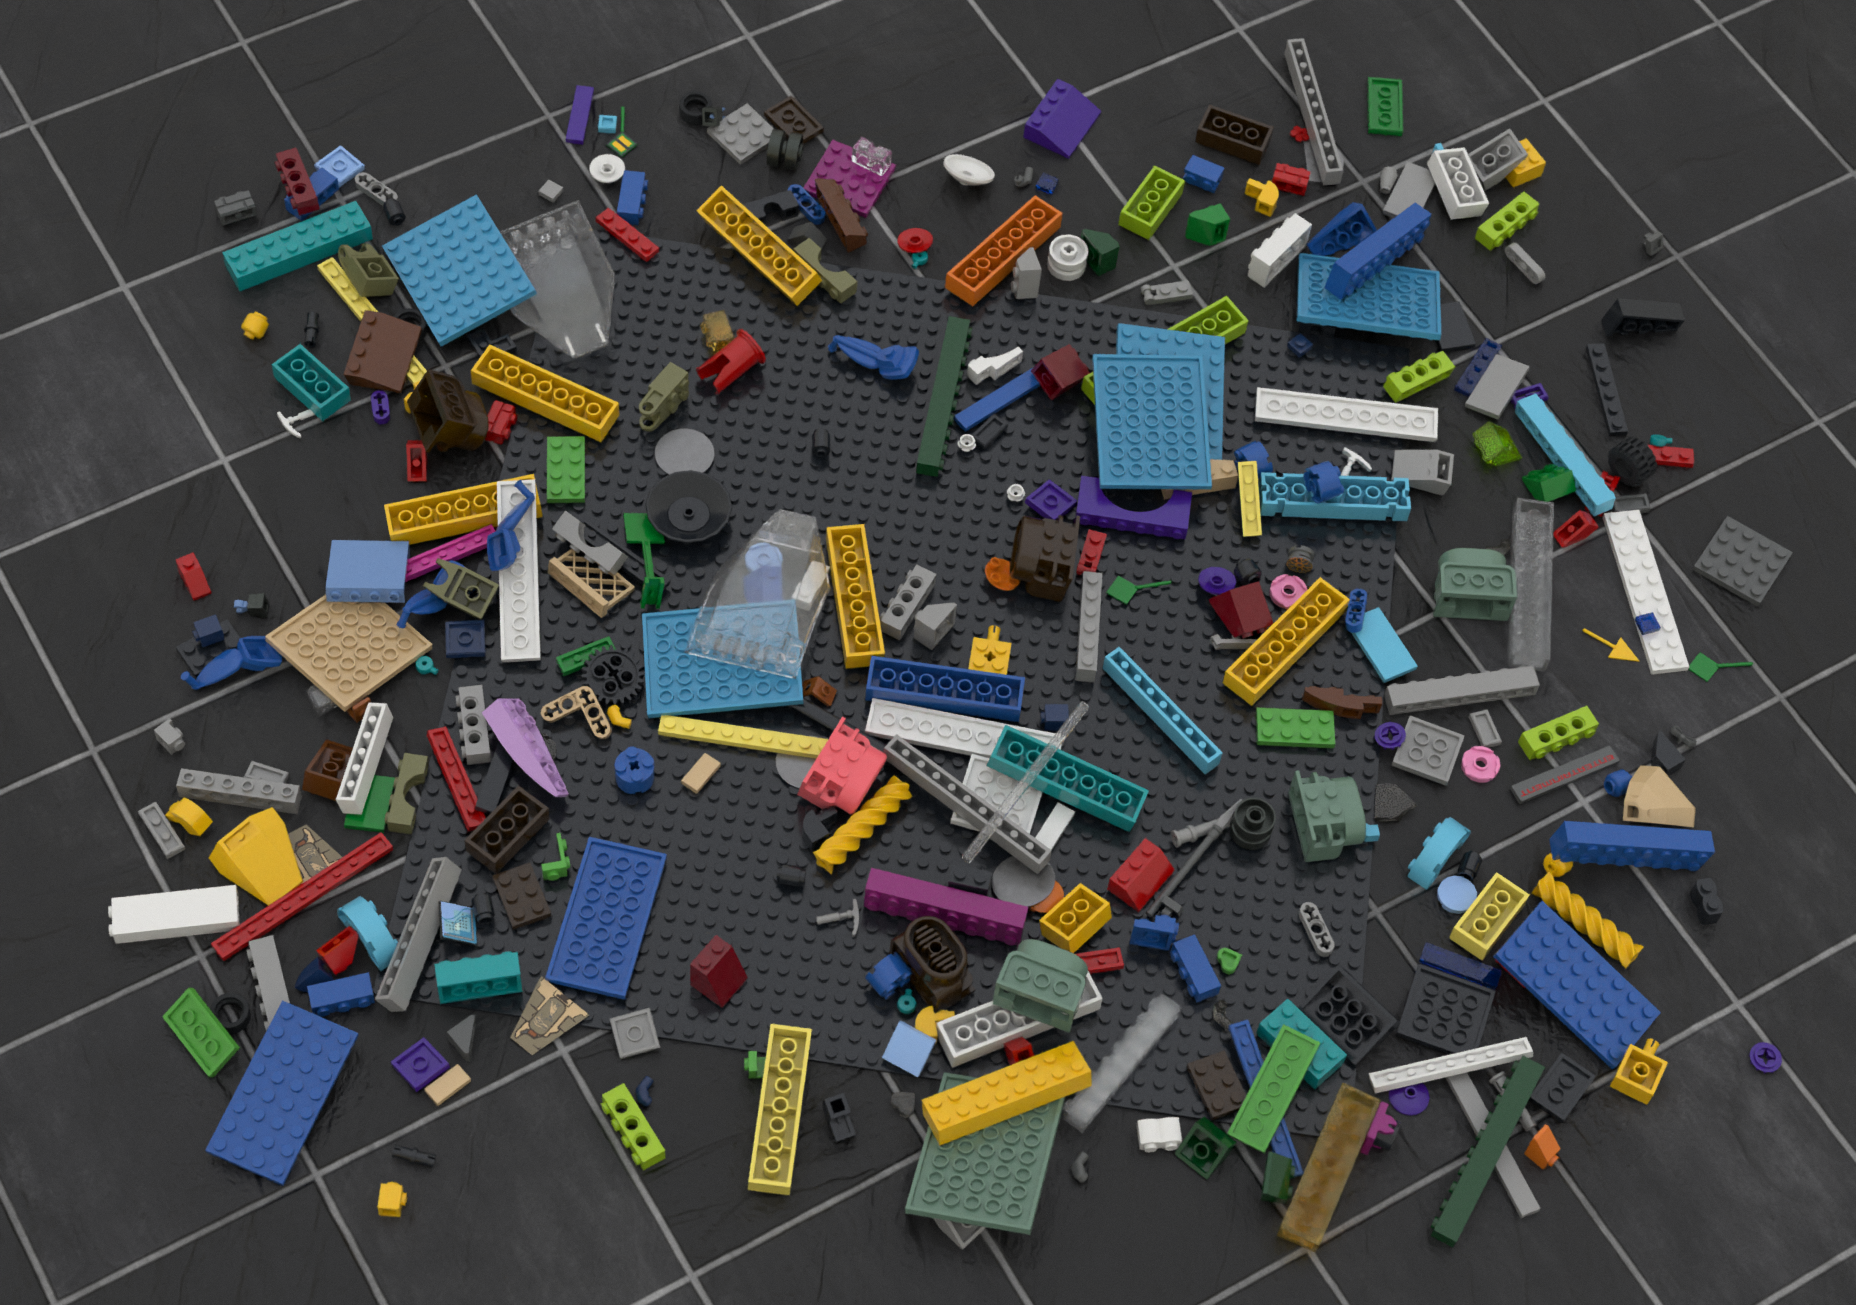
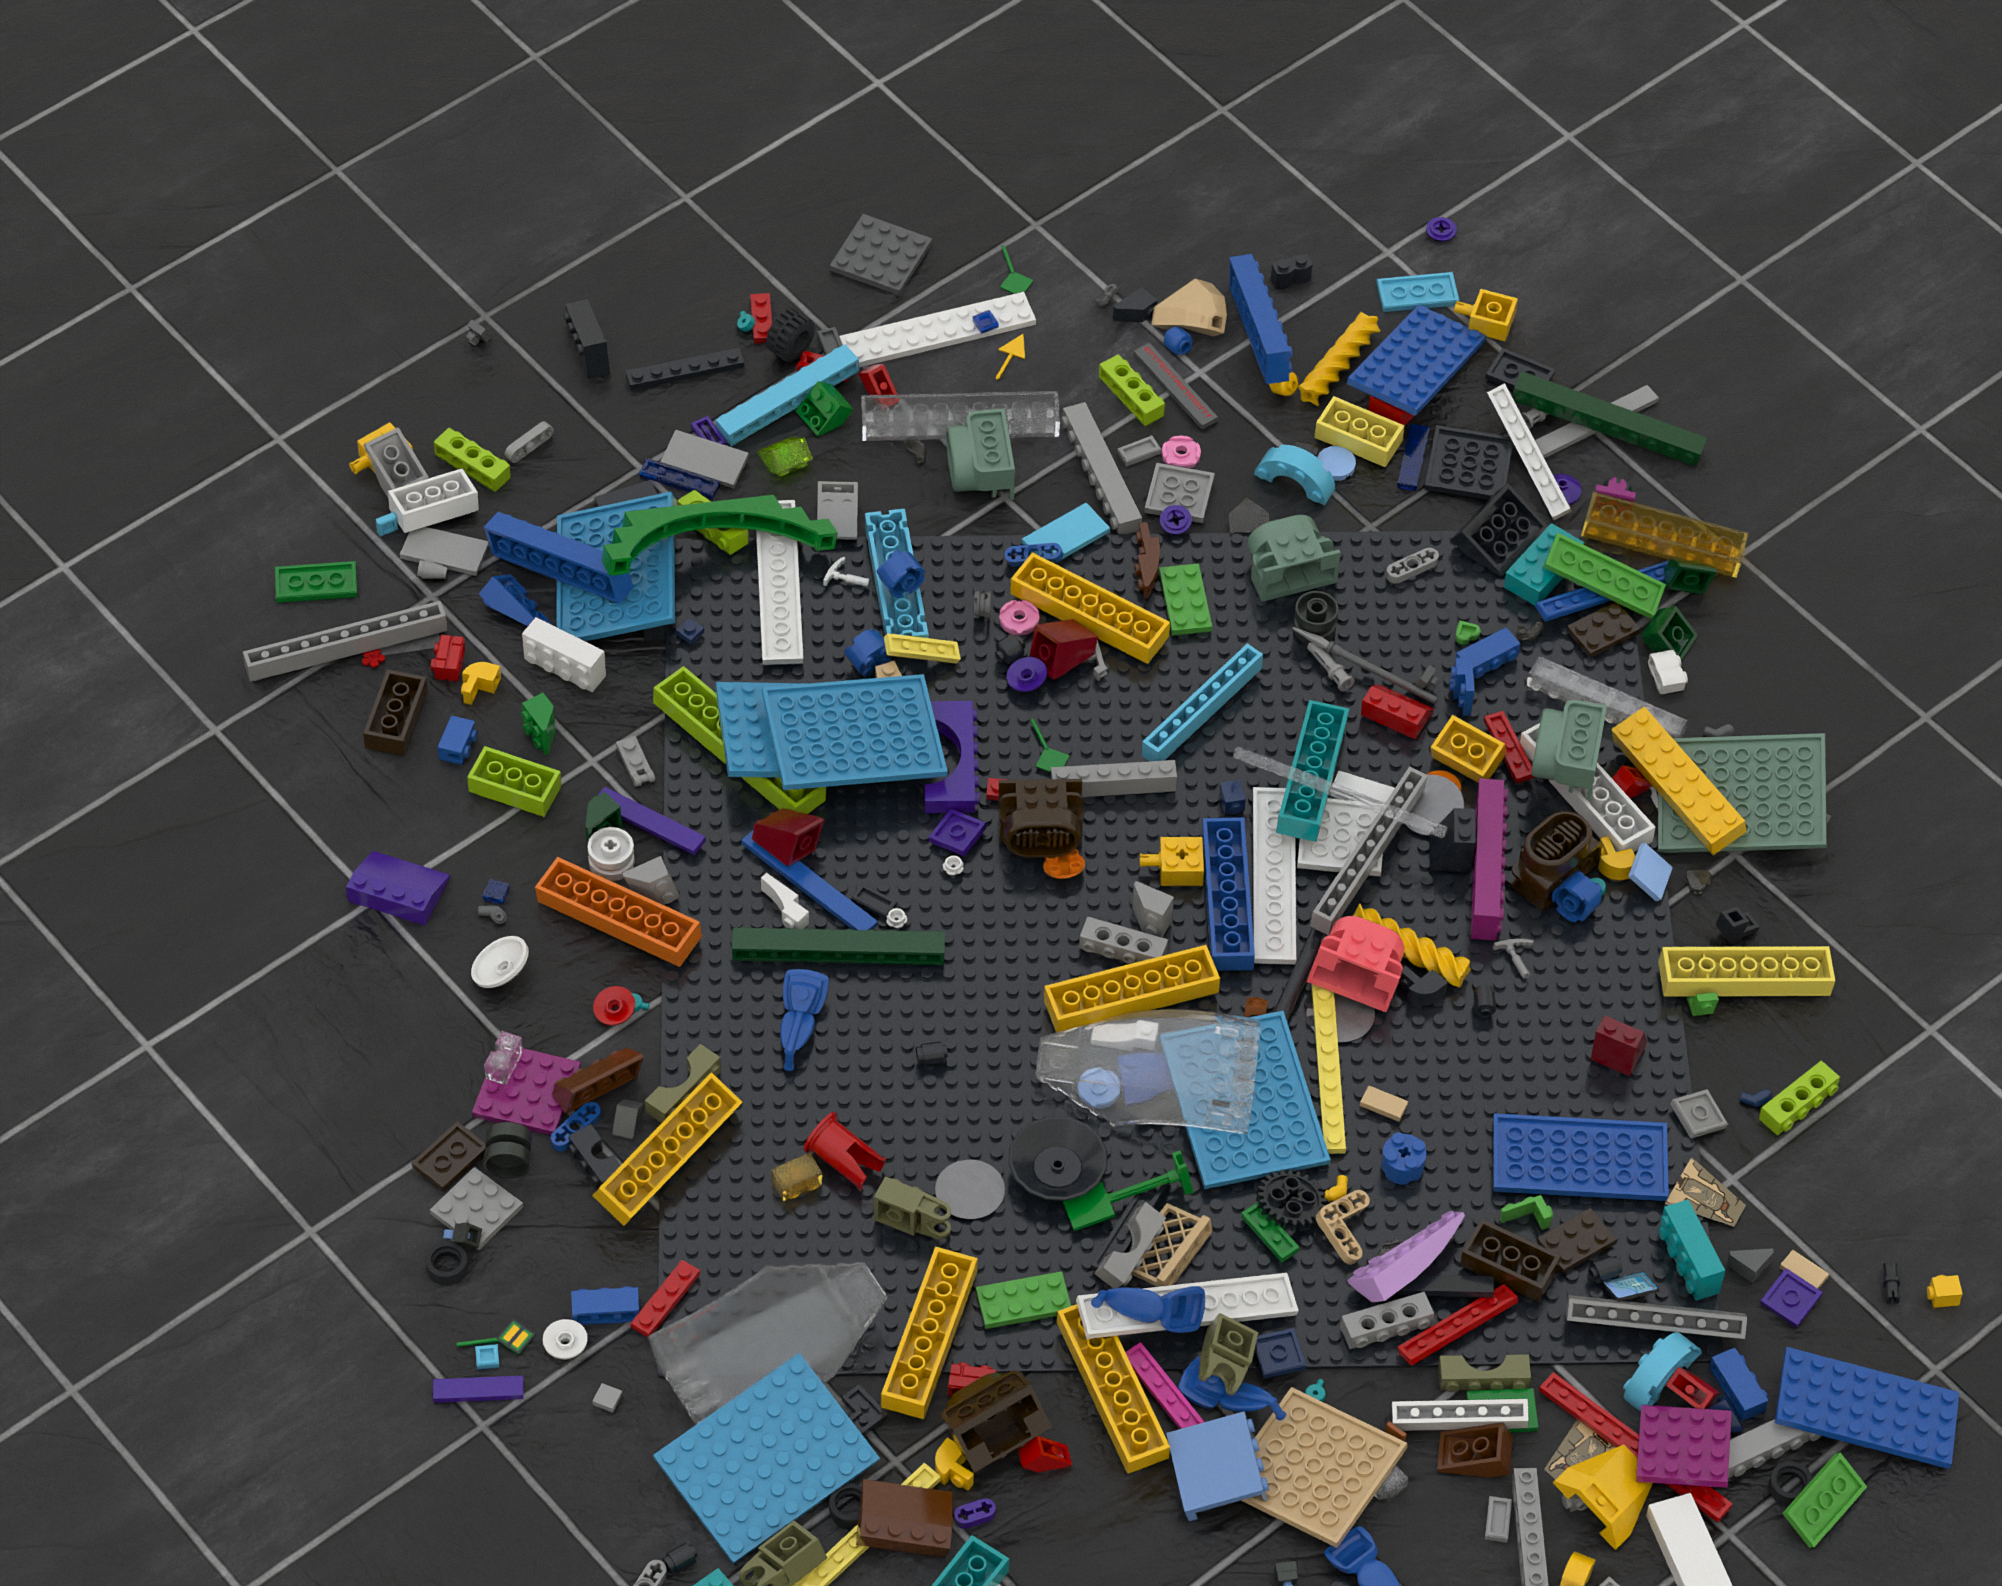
camera: 95 degrees left, 5 degrees down
(283, 926) = (1684, 1446): none -> magenta plate
(1099, 290) = (657, 824): none -> dark purple tile
(1391, 301) = (758, 513): none -> green arch
(1543, 1148) = (1590, 381): orange slope -> none
(1680, 1018) = (1416, 290): none -> medium azure tile

